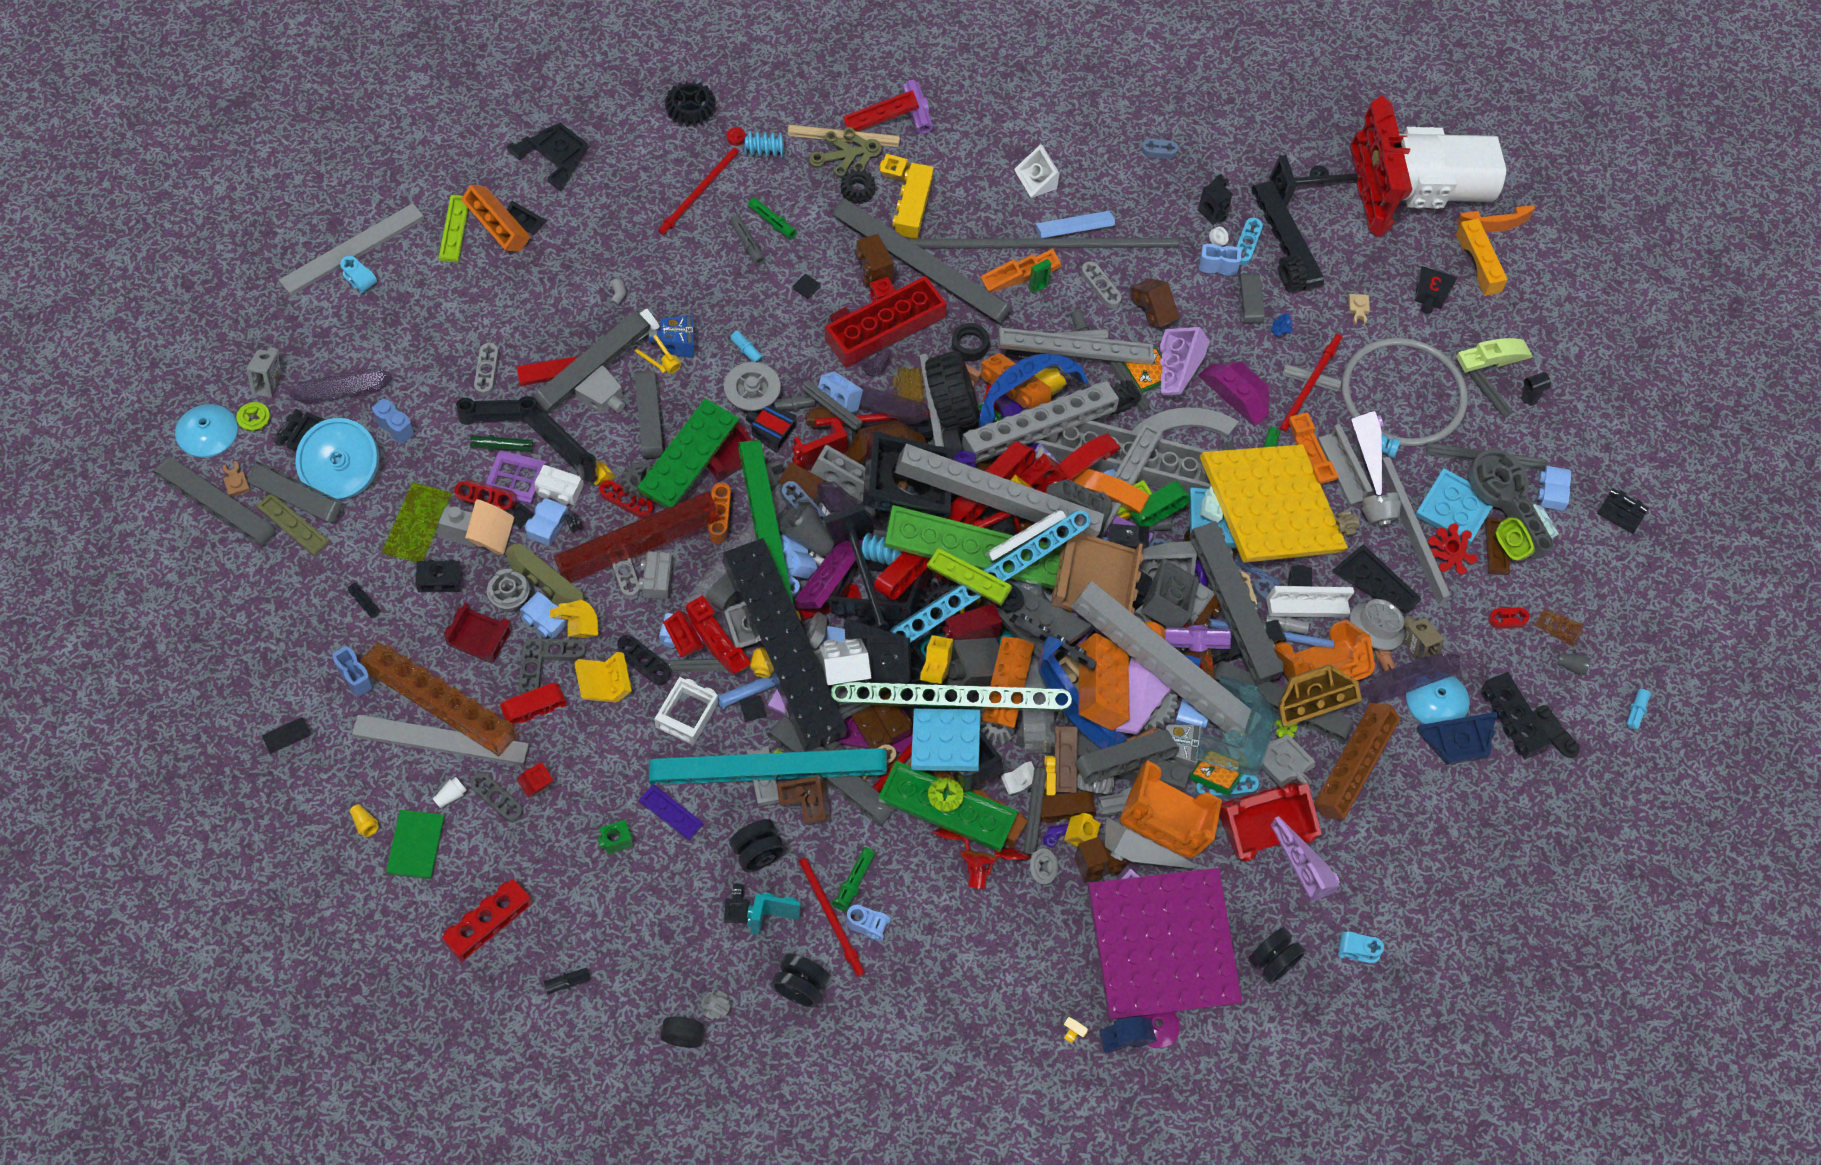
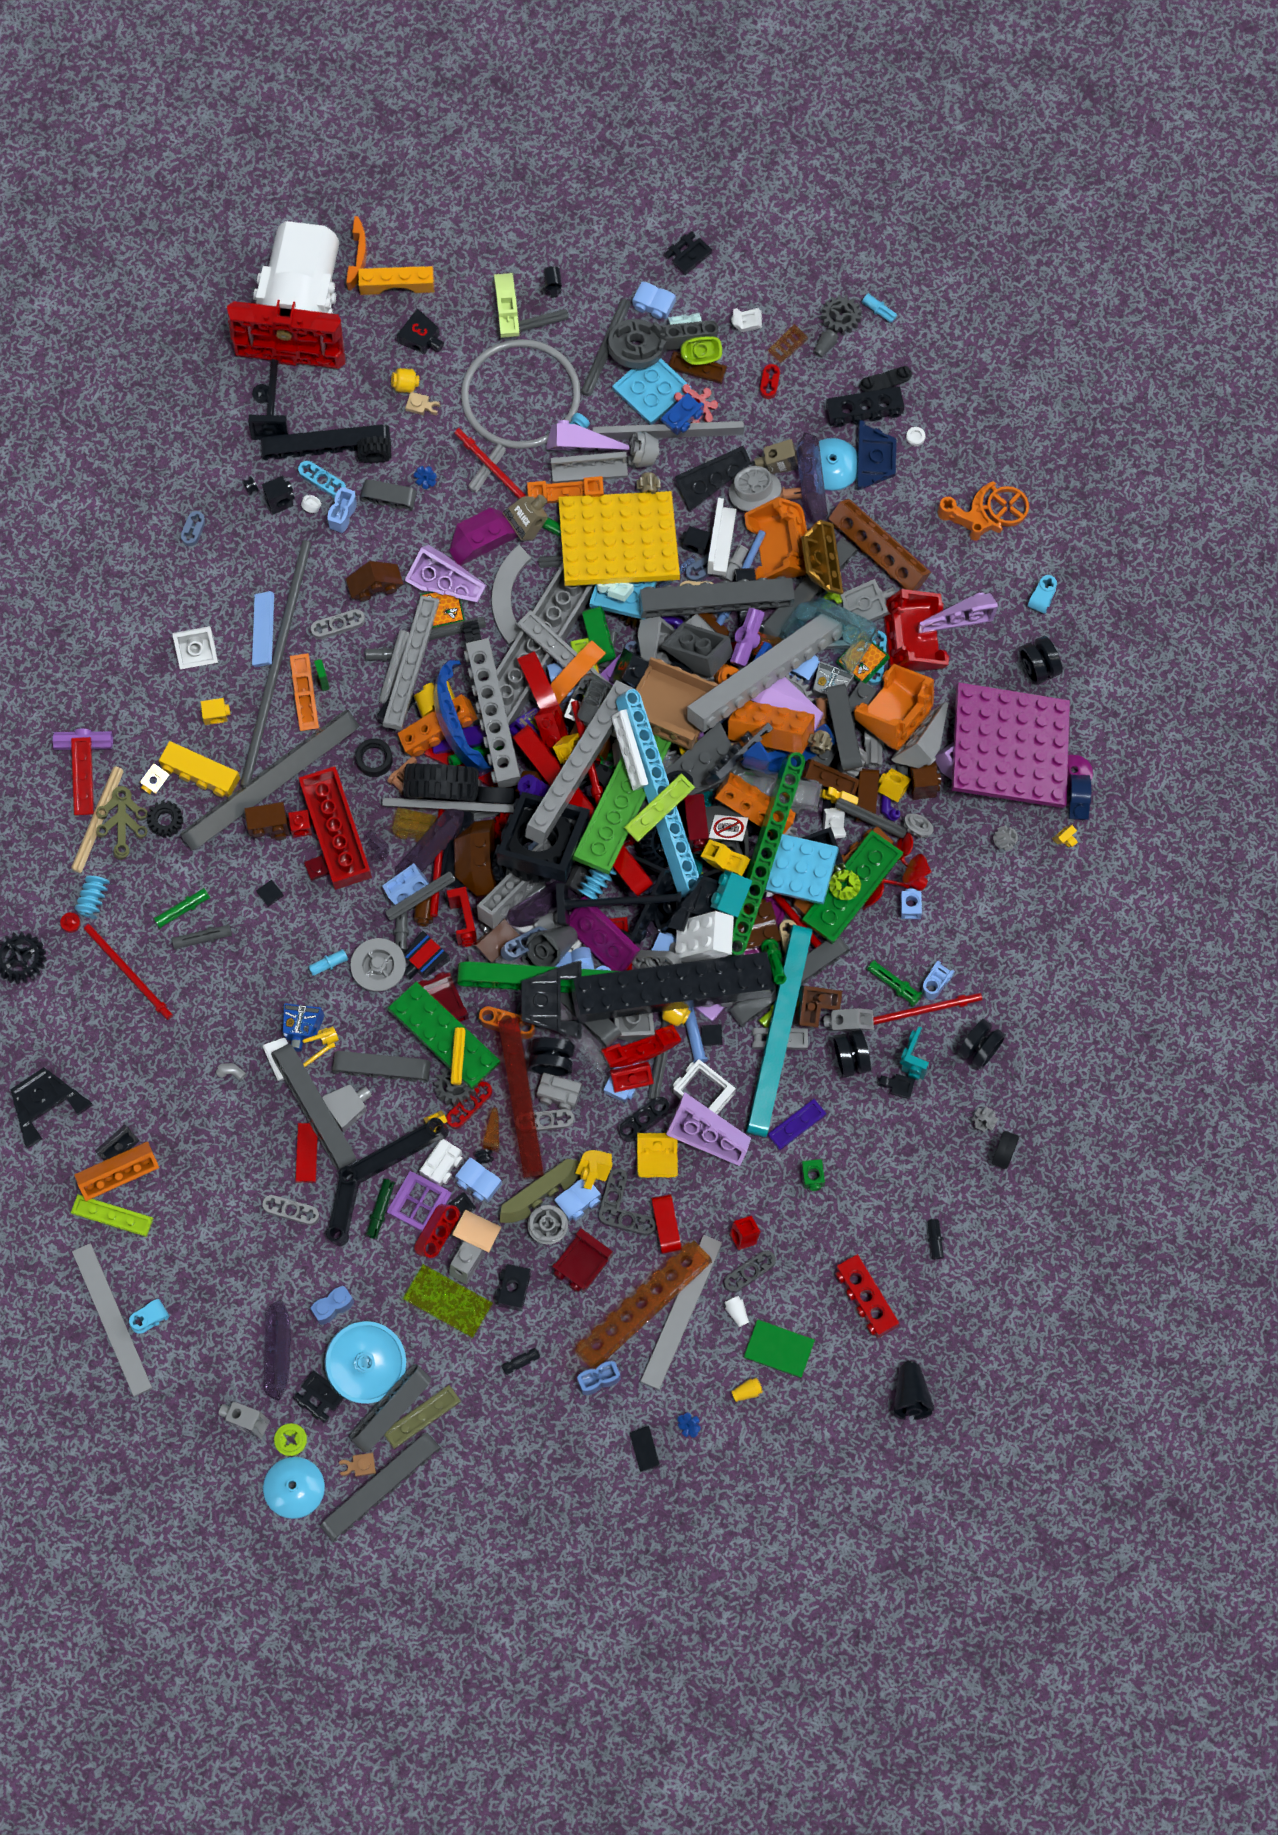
camera: 70 degrees left, 10 degrees up
(317, 770) = (689, 1425): none -> blue plant
(383, 986) = (912, 1393): none -> black cone
(598, 523) = (491, 1138): none -> clear orange slope
(637, 717) = (707, 1131): none -> lavender wedge
(664, 464) = (458, 1054): none -> yellow axle
(689, 555) = (551, 1056): none -> black wheel
(737, 523) = (543, 999): none -> black wing
(792, 830) = (850, 1020): none -> light grey torso
(846, 742) = (774, 957): none -> green pin
(895, 669) = (731, 893): none -> teal brick
(942, 884) = (911, 912): none -> light blue brick
(973, 658) = (728, 827): none -> sticker
(977, 201) = (215, 711): none -> yellow brick
(1054, 962) = (1005, 838): none -> light grey gear
(1100, 733) = (820, 742): none -> dark tan gear
(1268, 417) = (527, 516): none -> dark tan torso
(1378, 286) = (404, 380): none -> yellow head
(1425, 858) = (976, 519): none -> orange piece
(1434, 533) = (682, 414): none -> blue bracket
(1502, 777) = (915, 436): none -> white tile
(1568, 579) = (747, 320): none -> white bracket
(1612, 672) = (842, 322): none -> dark grey gear

